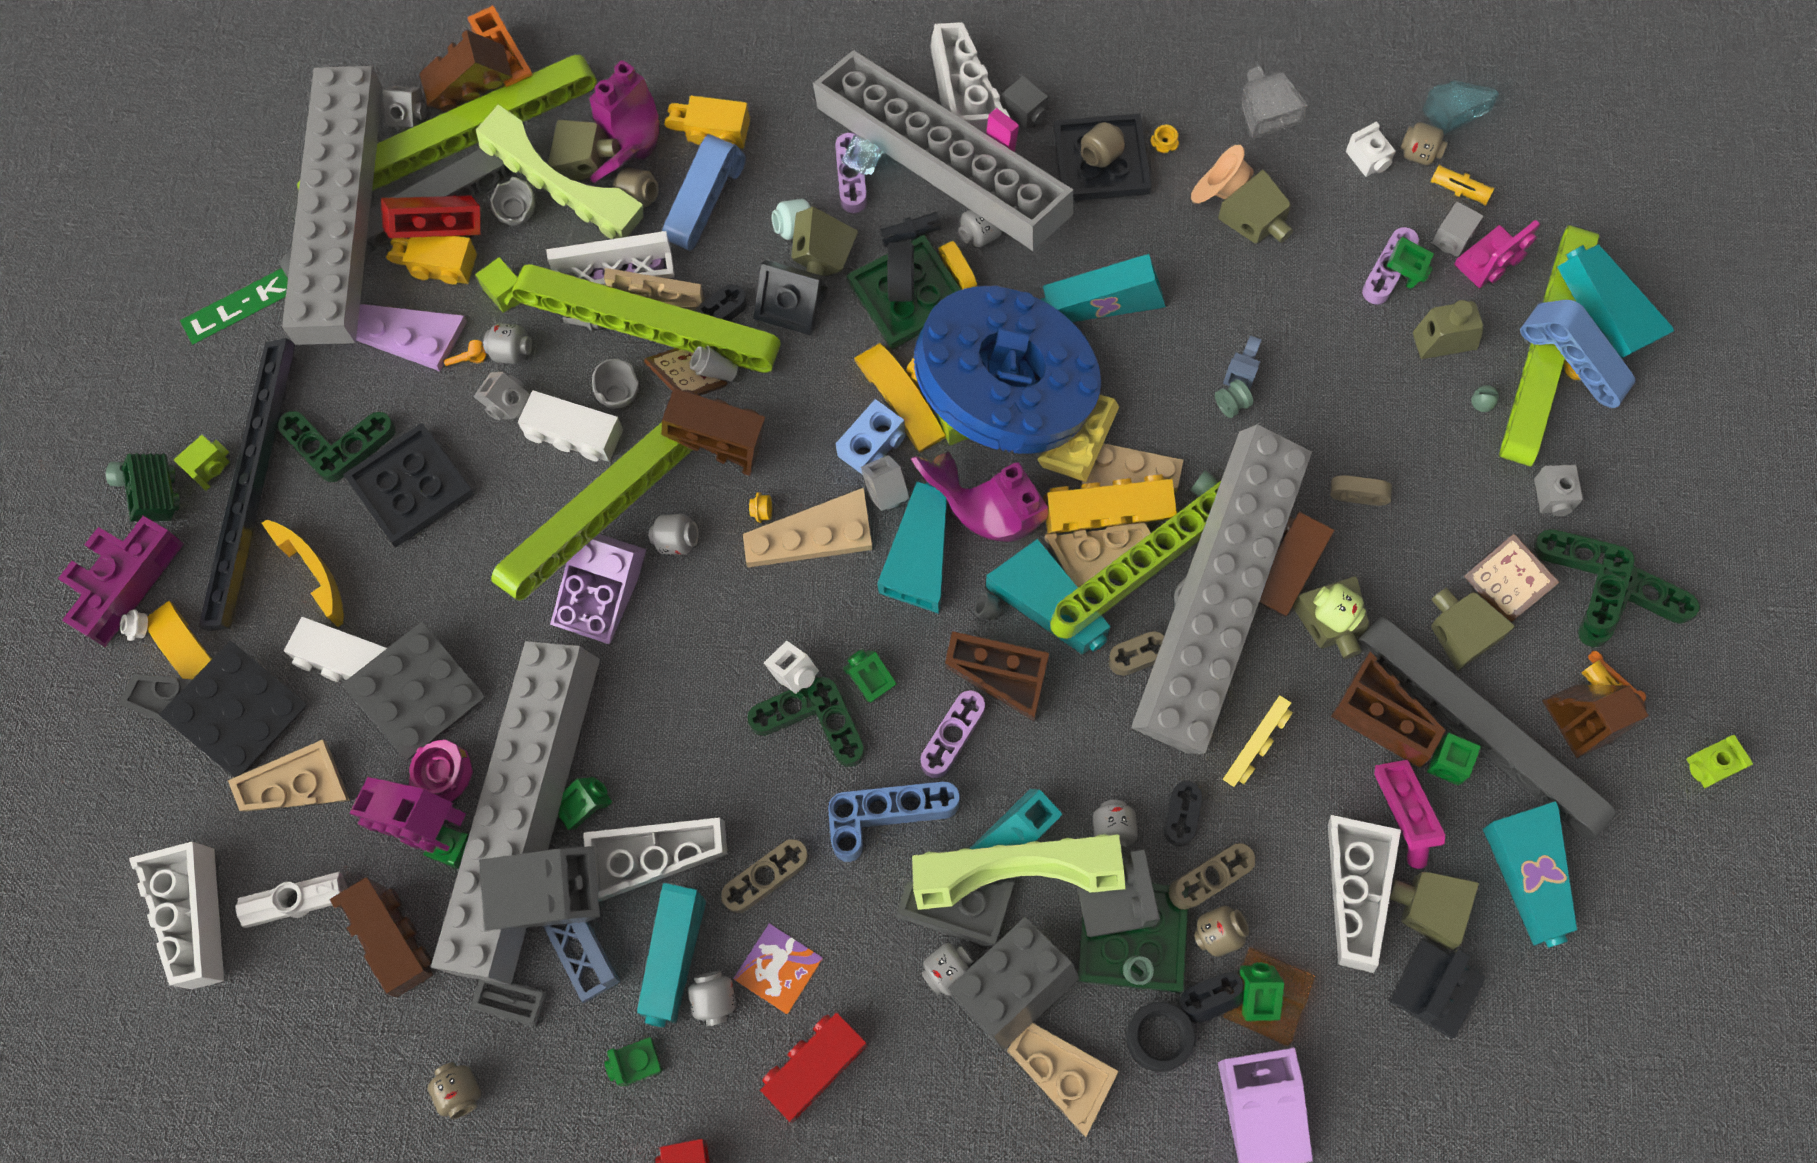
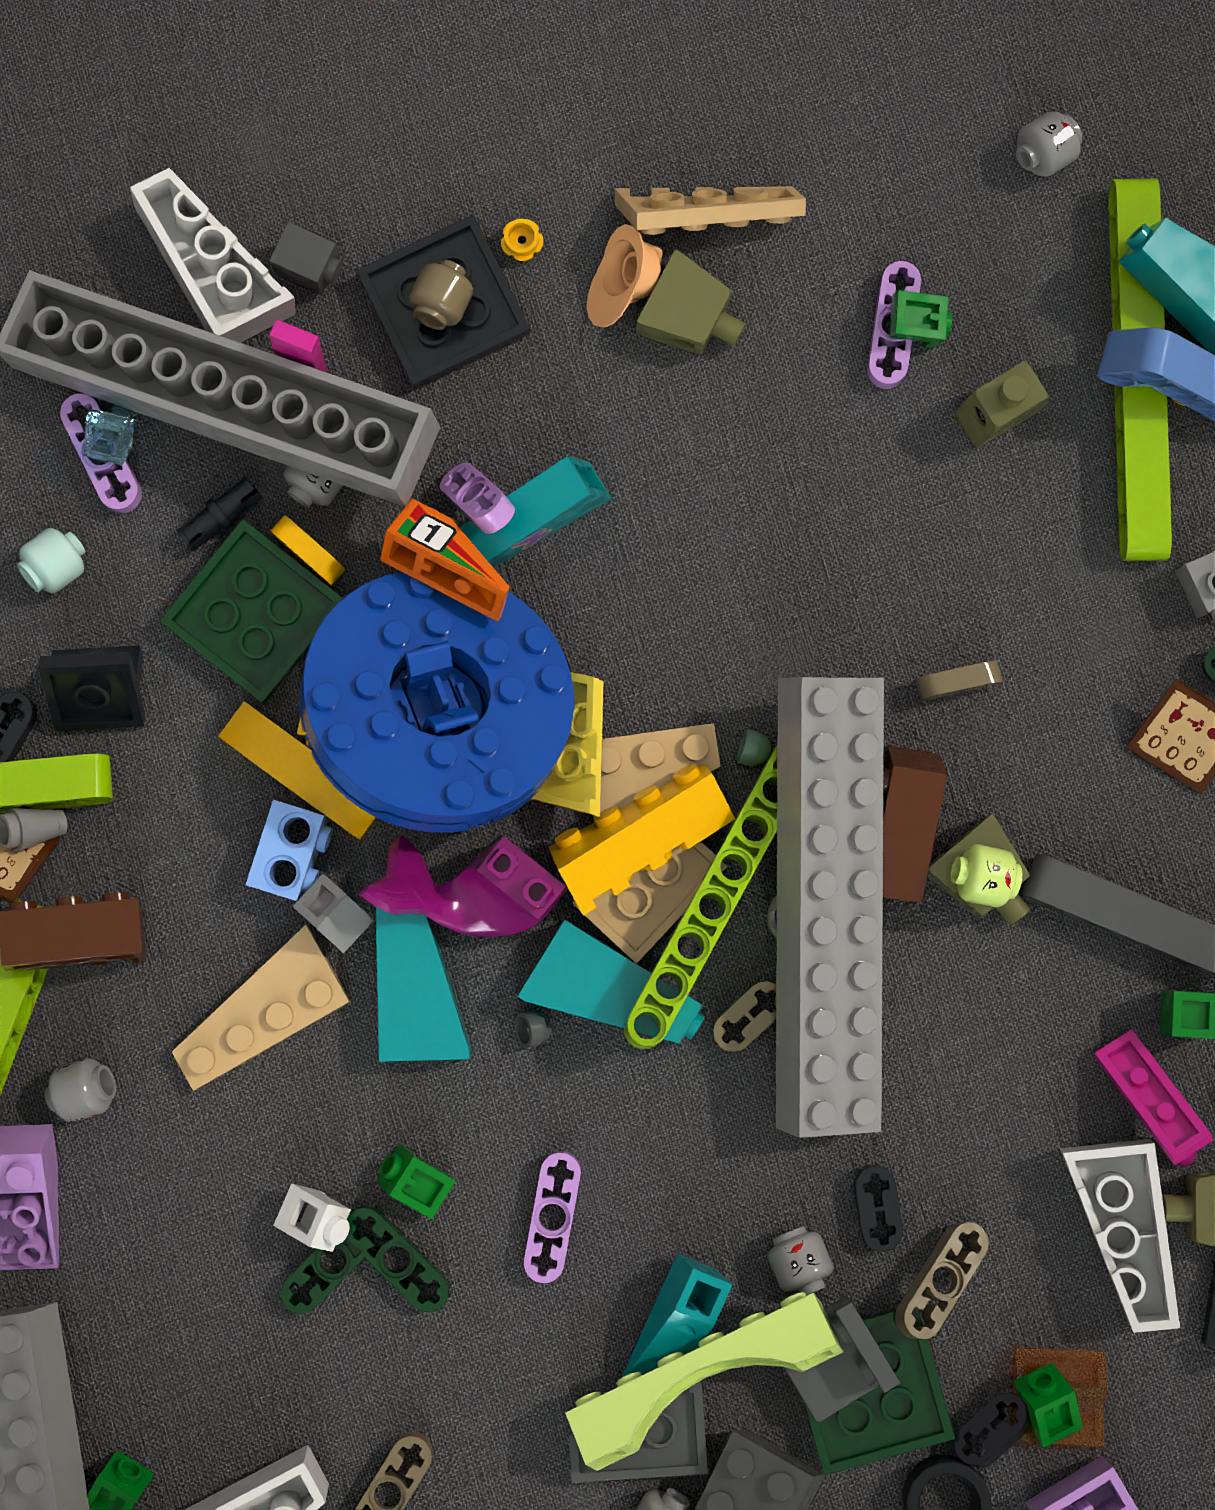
camera: 25 degrees left, 15 degrees up
(761, 507) = (180, 1004): yellow plate -> none
(821, 242) = (106, 593): olive torso -> none
(894, 813) = (519, 1351): medium blue beam -> none
(900, 271) = (235, 604): black tyre -> none
(1000, 669) = (581, 1116): reddish brown wedge -> none
(1045, 287) = (443, 557): none -> orange slope
(1080, 265) = (477, 498): none -> lavender beam
(1143, 965) = (889, 1450): sand green hinge -> none
(1221, 931) = (976, 1345): dark tan head -> none
(1234, 398) = (750, 609): sand green wheel -> none
(1244, 366) = (748, 560): sand blue piece -> none
(1259, 742) = (947, 1055): light yellow wing -> none
(1270, 103) = (648, 128): clear torso -> none
(1283, 154) = (709, 206): none -> tan wing
(1370, 150) = (812, 171): white brick -> none
(1387, 714) = (1083, 983): reddish brown wedge -> none
(1423, 143) = (880, 120): dark tan head -> none
(1457, 229) = (966, 240): light grey brick -> none
(1458, 104) = (906, 37): clear light blue slope -> none
(1467, 626) = (1153, 823): olive torso -> none
(1481, 194) = (952, 162): yellow pin -> none
(1486, 401) = (1080, 488): sand green hinge -> none
(1494, 253) = (1027, 259): dark pink bracket -> none
(1531, 192) = (1048, 143): none -> light grey head

